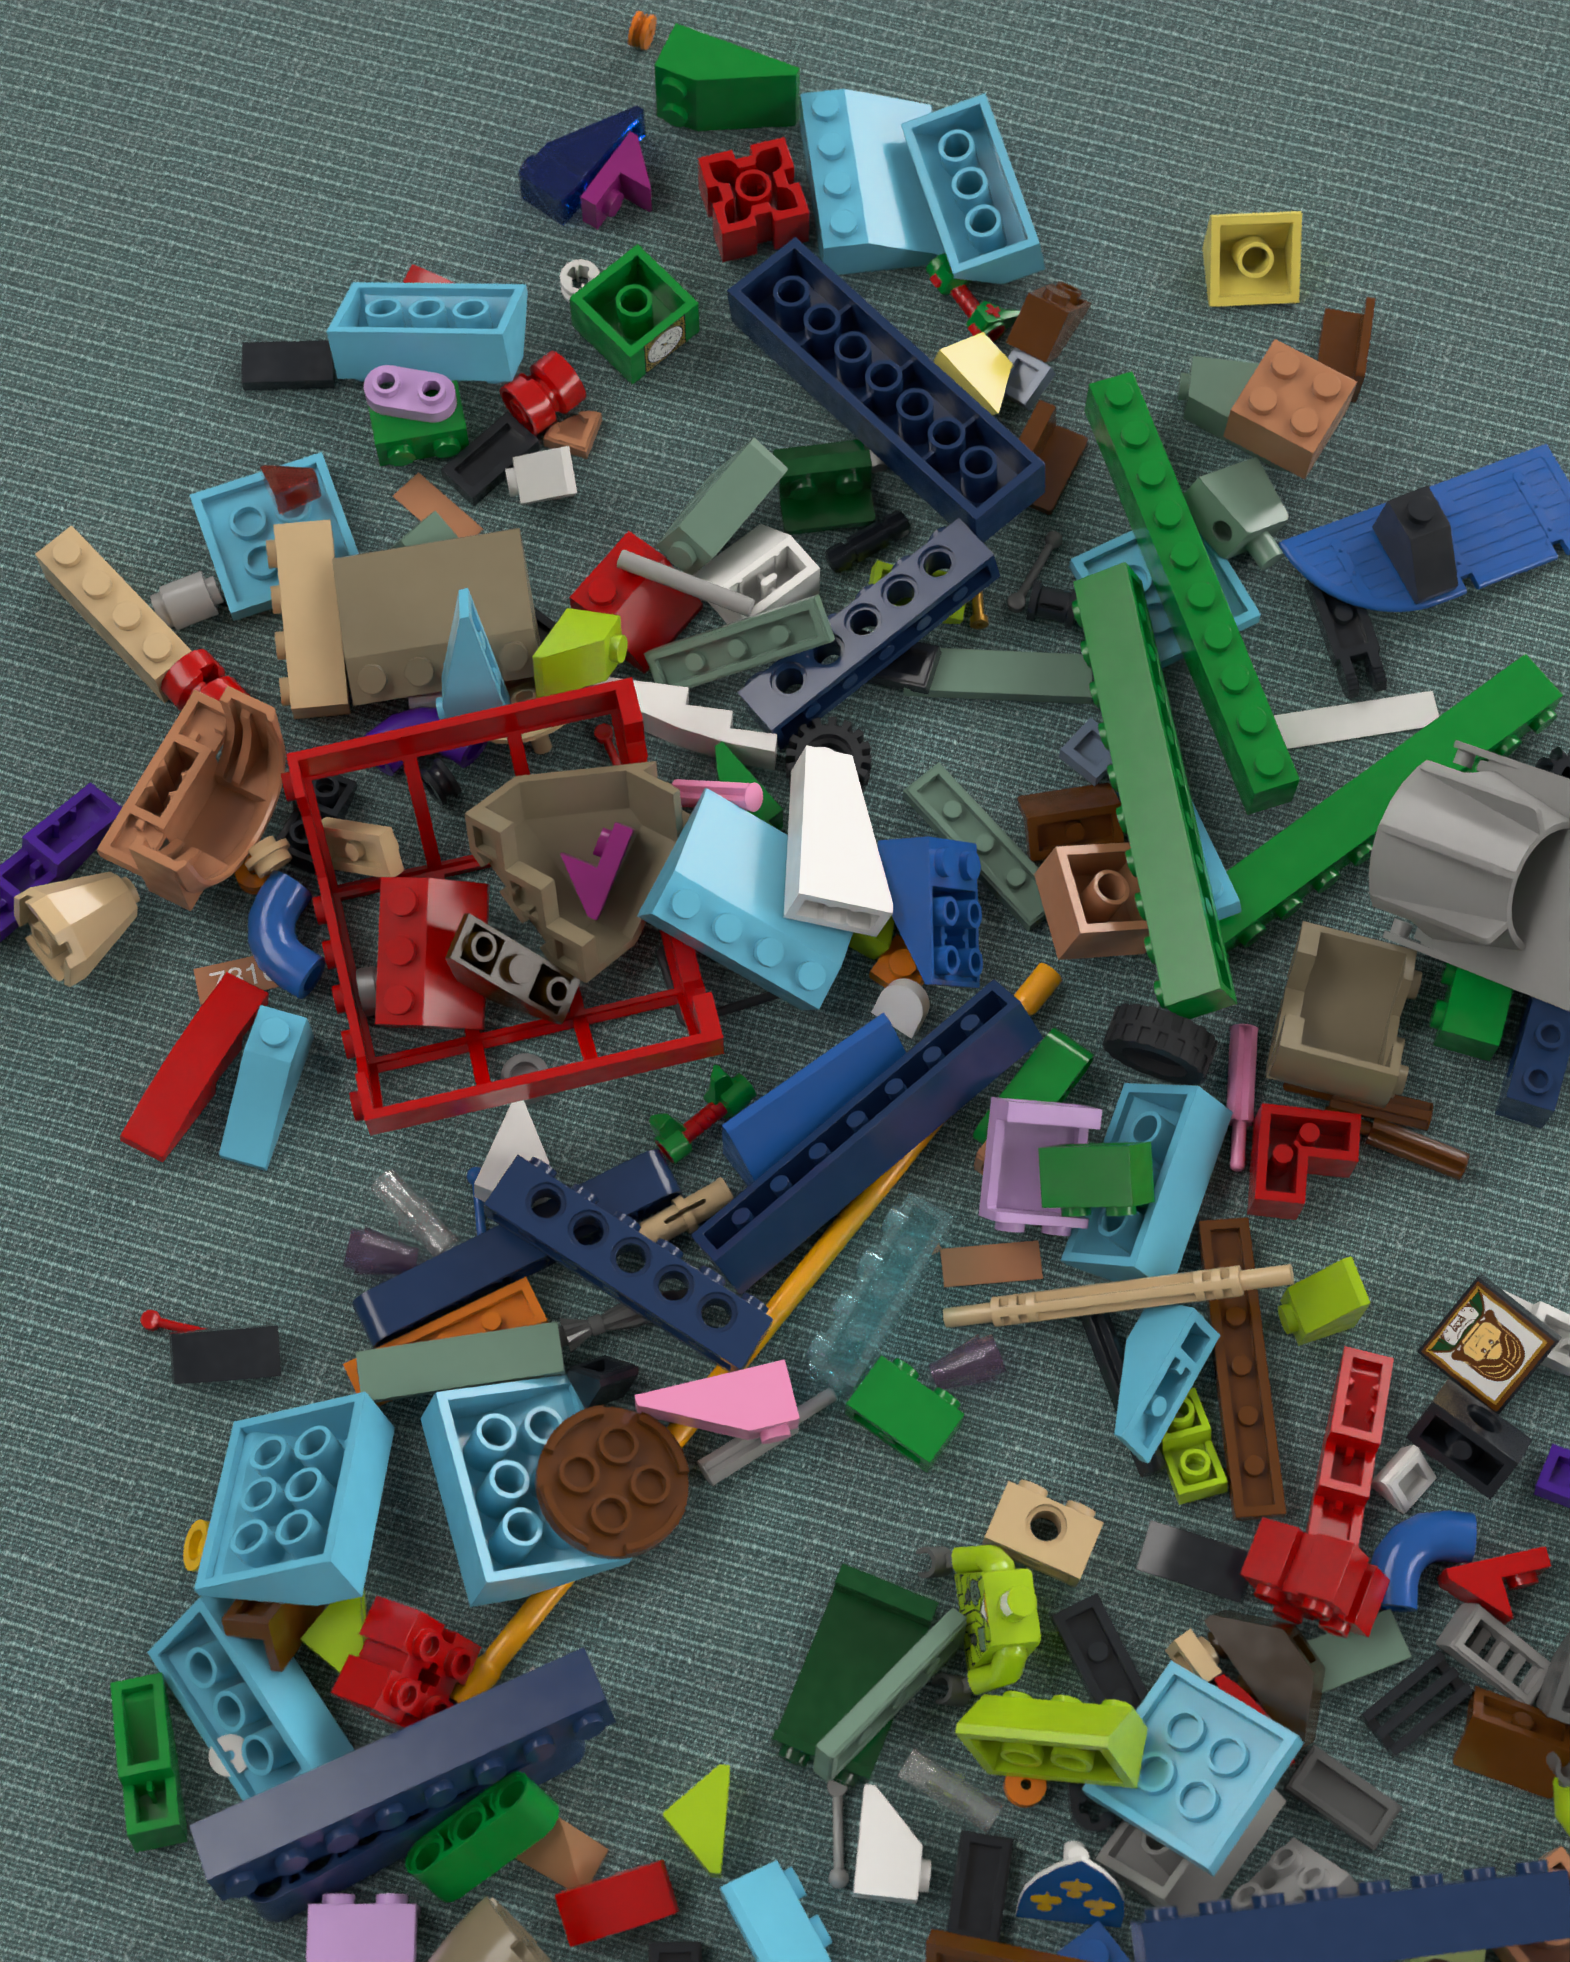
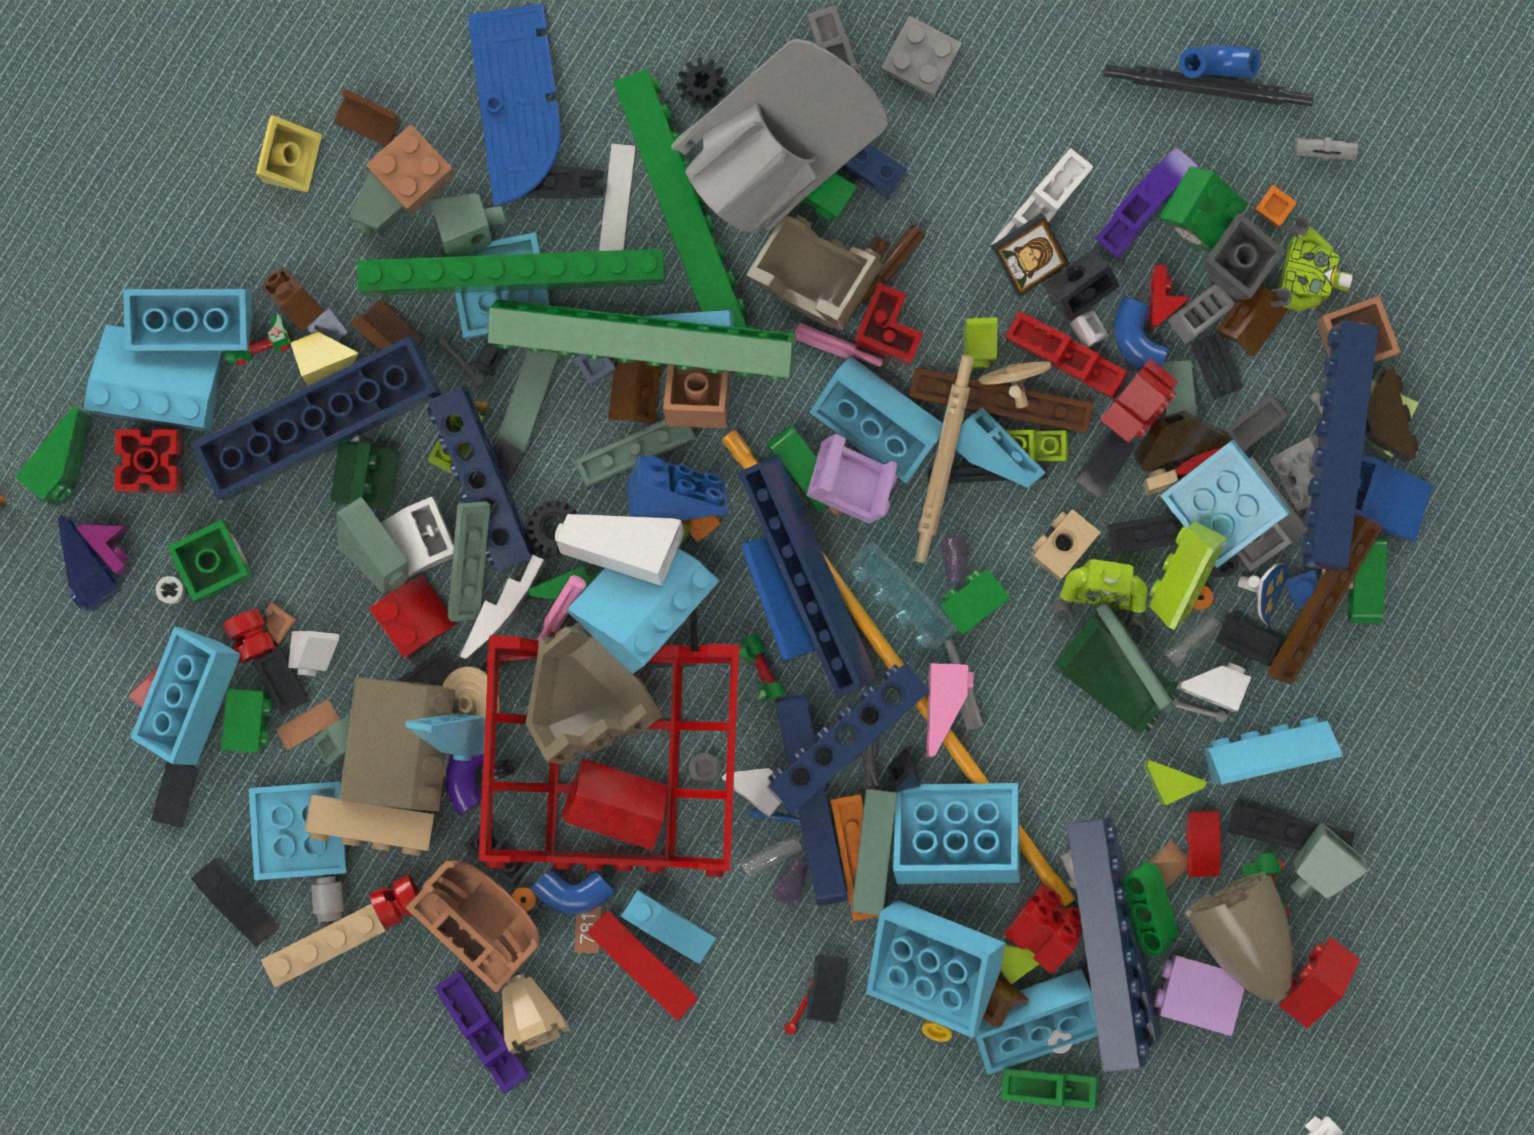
camera: 70 degrees left, 15 degrees up
(154, 477) = (235, 901): none -> black slope
(268, 856) = (521, 888): tan plate -> none
(290, 486) = (273, 814): clear red slope -> none
(362, 848) = (534, 829): tan plate -> none
(366, 985) = (621, 847): flat silver tile -> none
(408, 395) = (232, 723): lavender plate -> none
(509, 972) = (645, 758): dark brown slope -> none
(578, 652) = (445, 661): lime slope -> none
(593, 881) = (598, 693): magenta slope -> none
(612, 1482) = (971, 782): reddish brown tile -> none
(685, 583) = (420, 583): light grey bar -> none
(687, 1212) = (813, 675): tan pin -> none
(867, 541) = (410, 459): black axle -> none
(904, 1005) = (725, 529): white tile -> none
(991, 1263) = (896, 524): nougat sticker -> none
(1096, 1176) = (873, 449): green brick -> none
(1160, 1044) = (799, 385): black tyre -> none
(1273, 1377) = (1015, 374): none -> tan shield
(1418, 544) = (524, 121): black slope -> none

